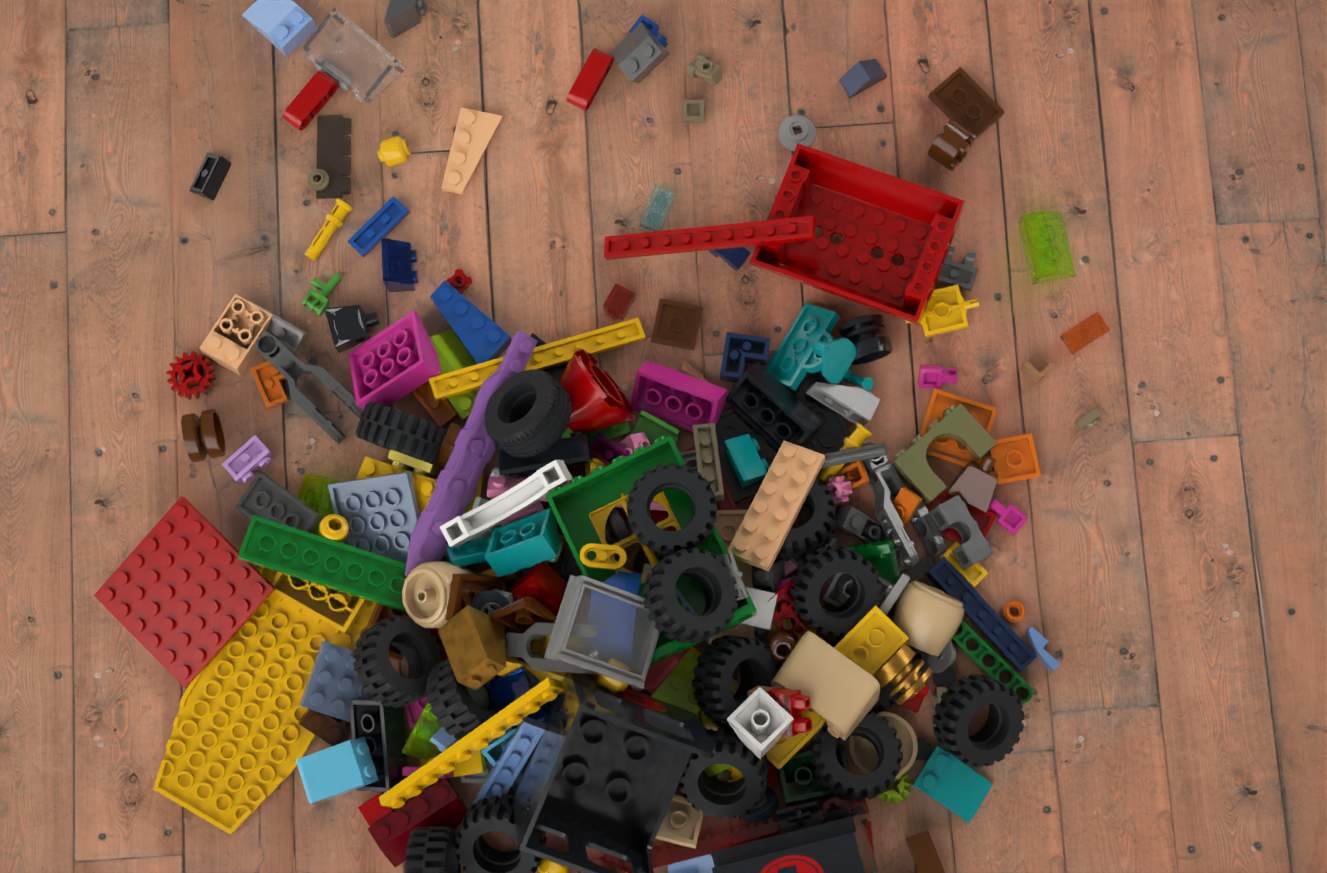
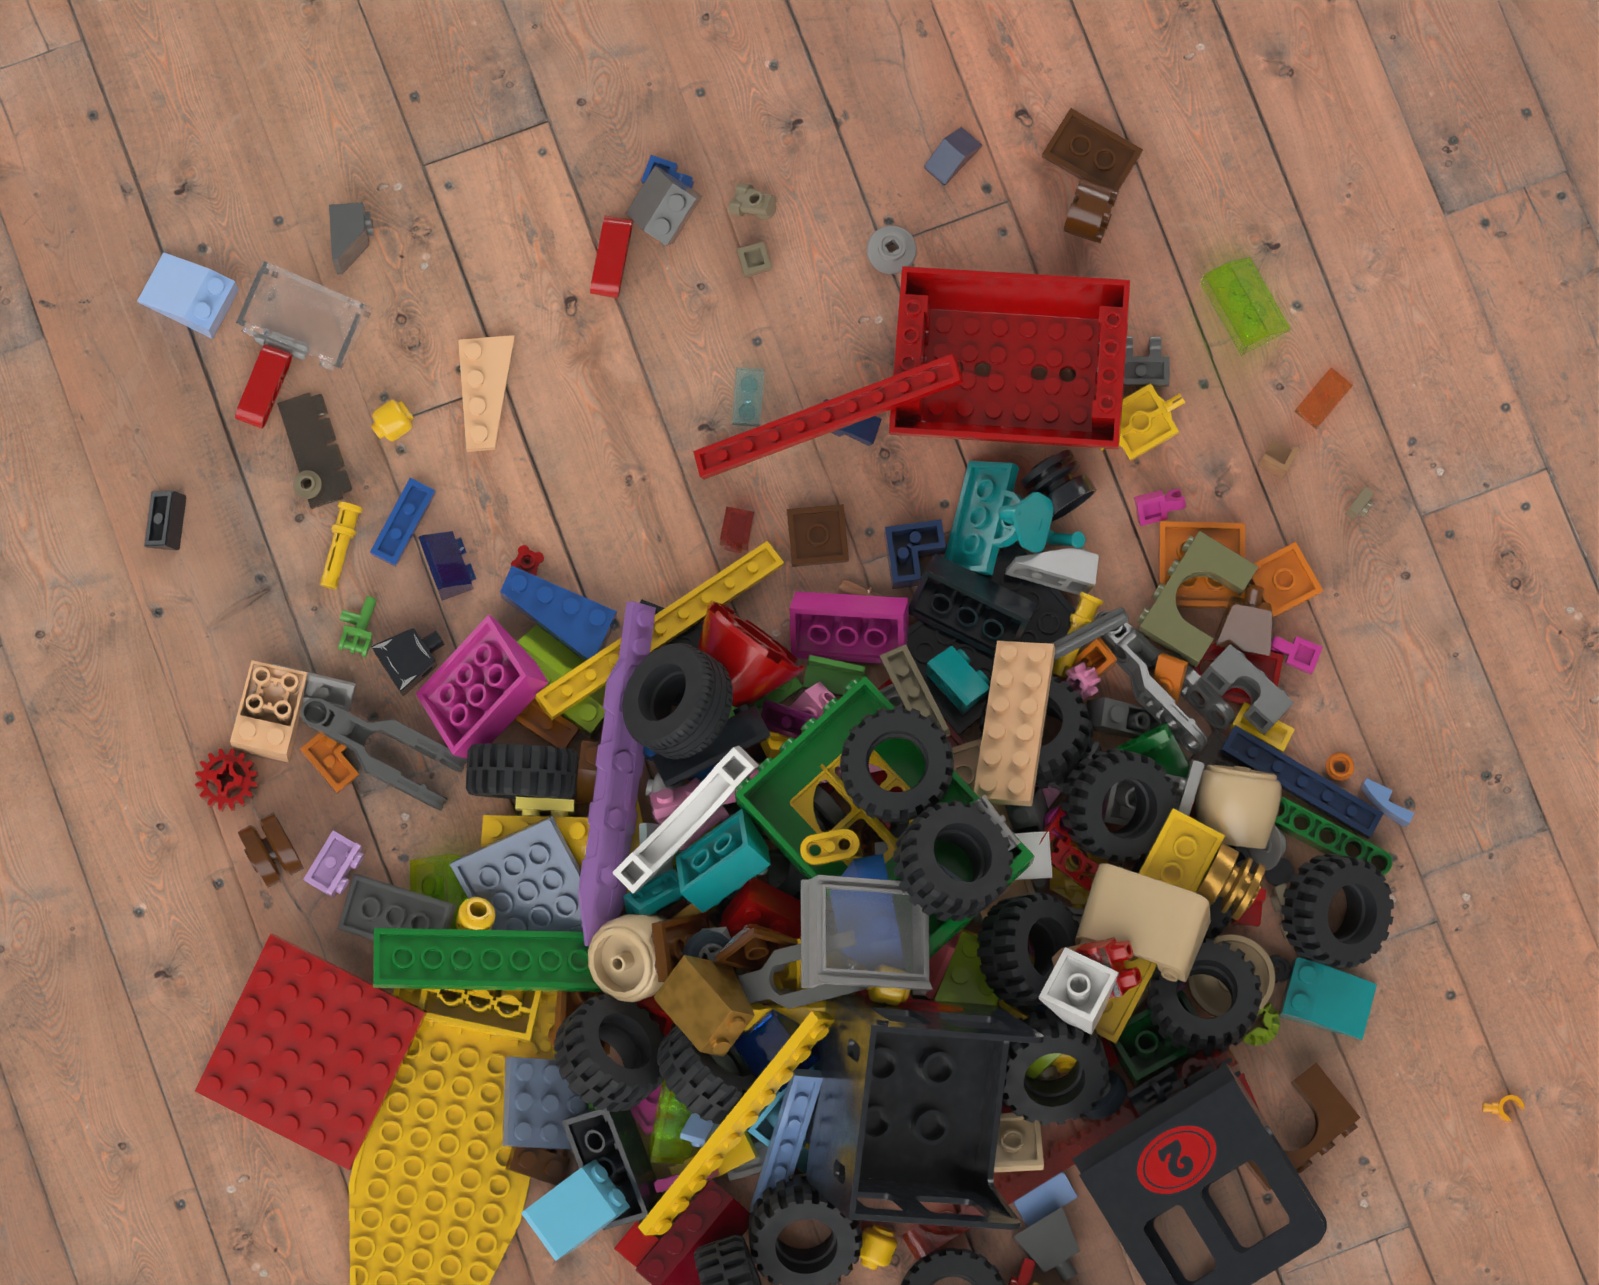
camera: 25 degrees left, 0 degrees up
(782, 644) = (1074, 890): reddish brown head -> none

